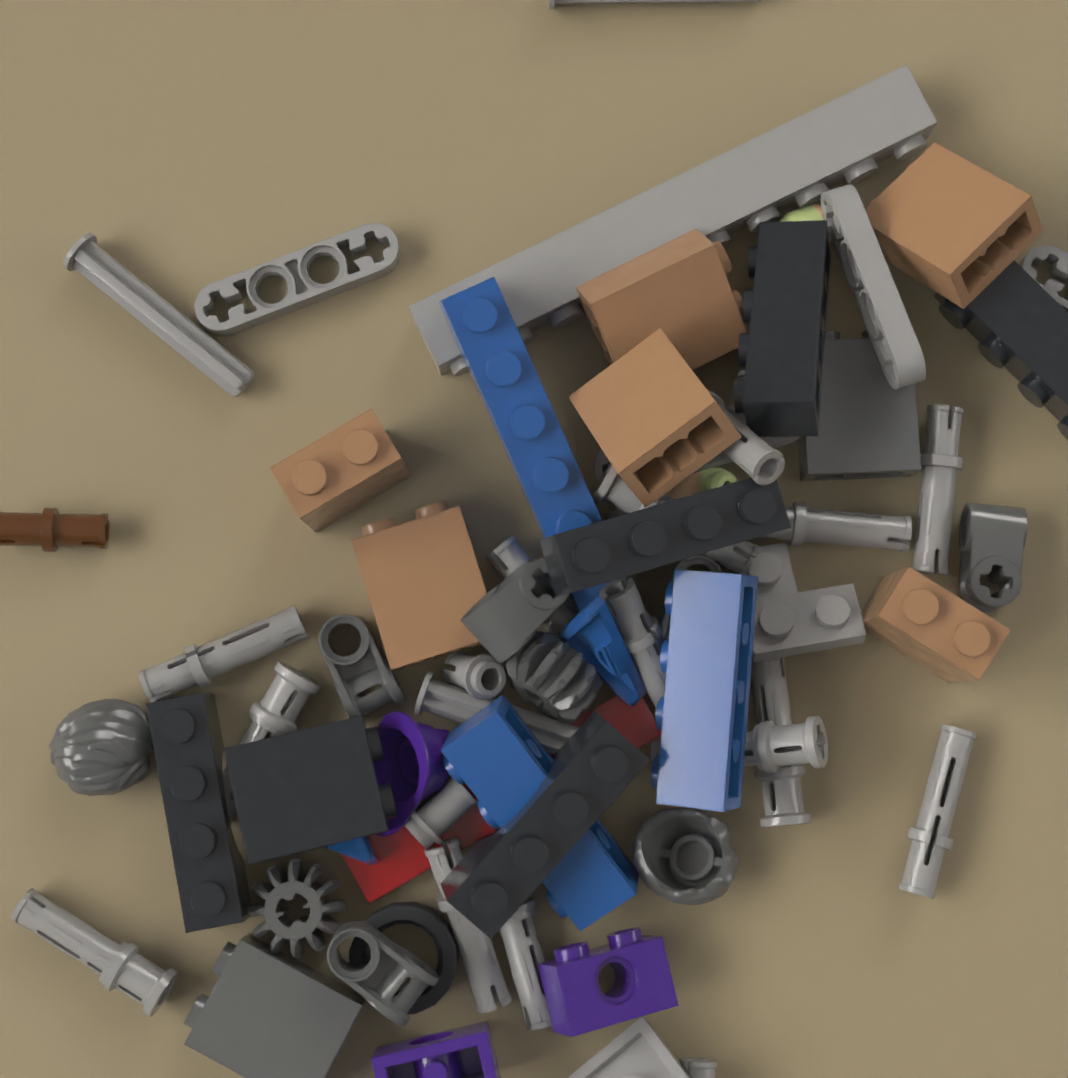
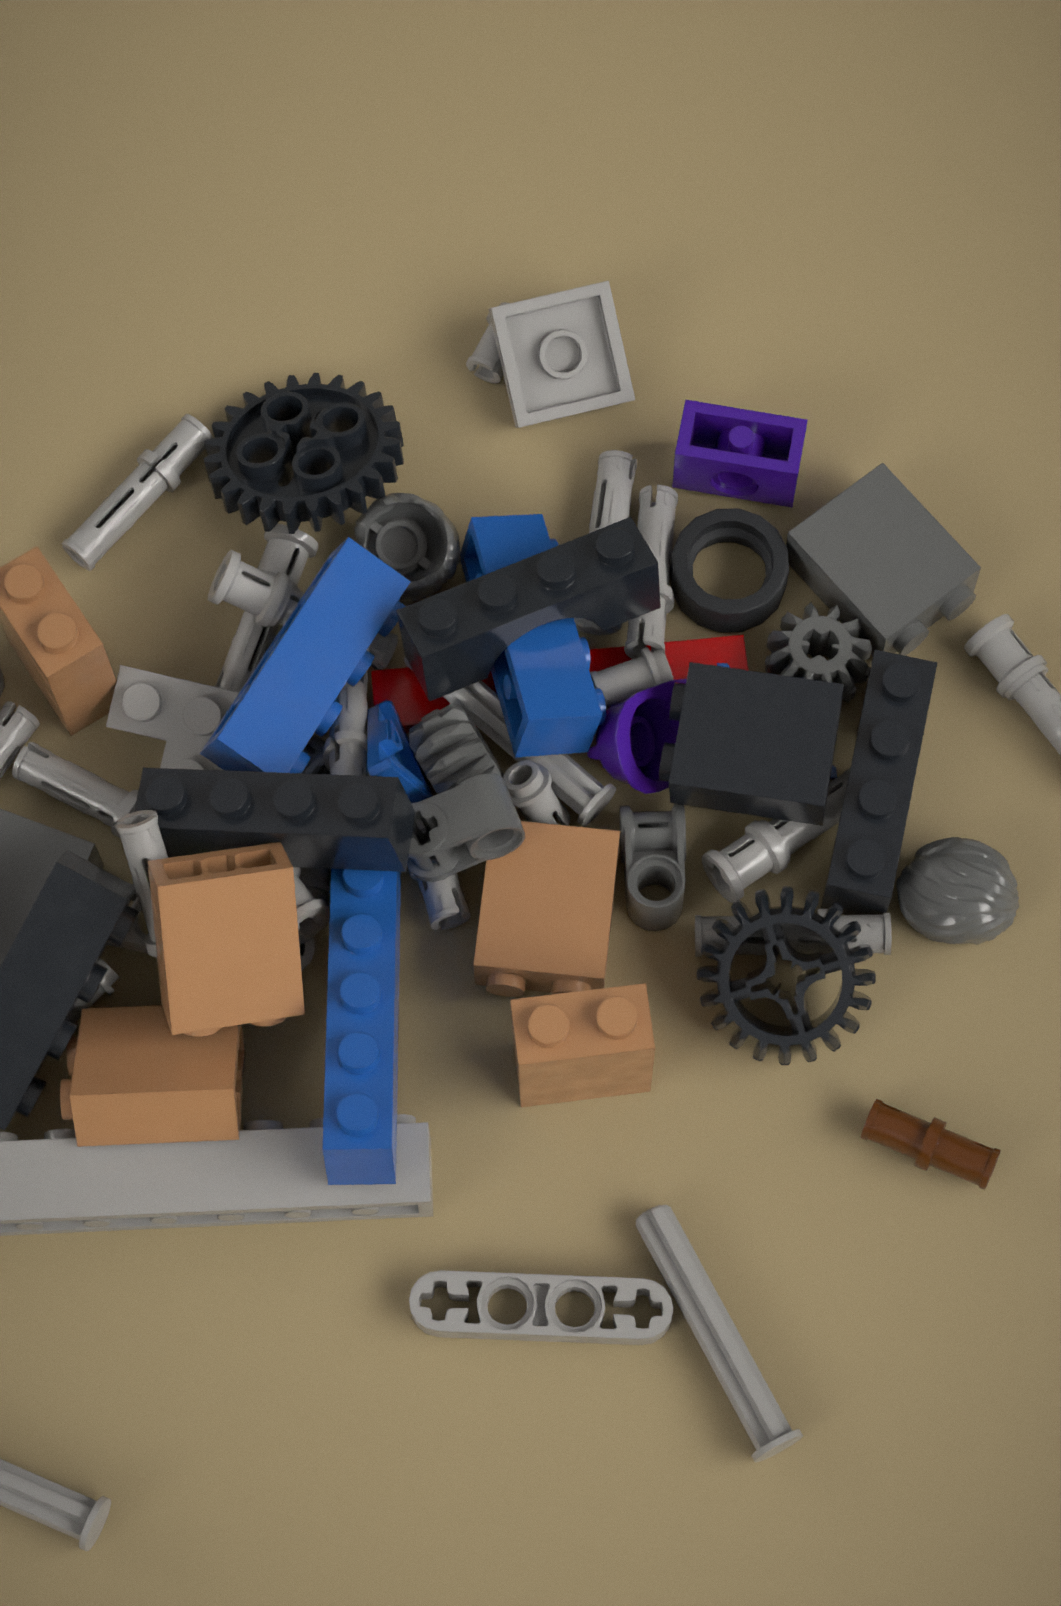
camera: 155 degrees left, 15 degrees down
(194, 635) = (755, 986): none -> black gear
(383, 972) = (753, 541): dark grey piece -> none
(640, 985) = (511, 444): dark purple brick -> none
(764, 912) = (304, 453): none -> black gear

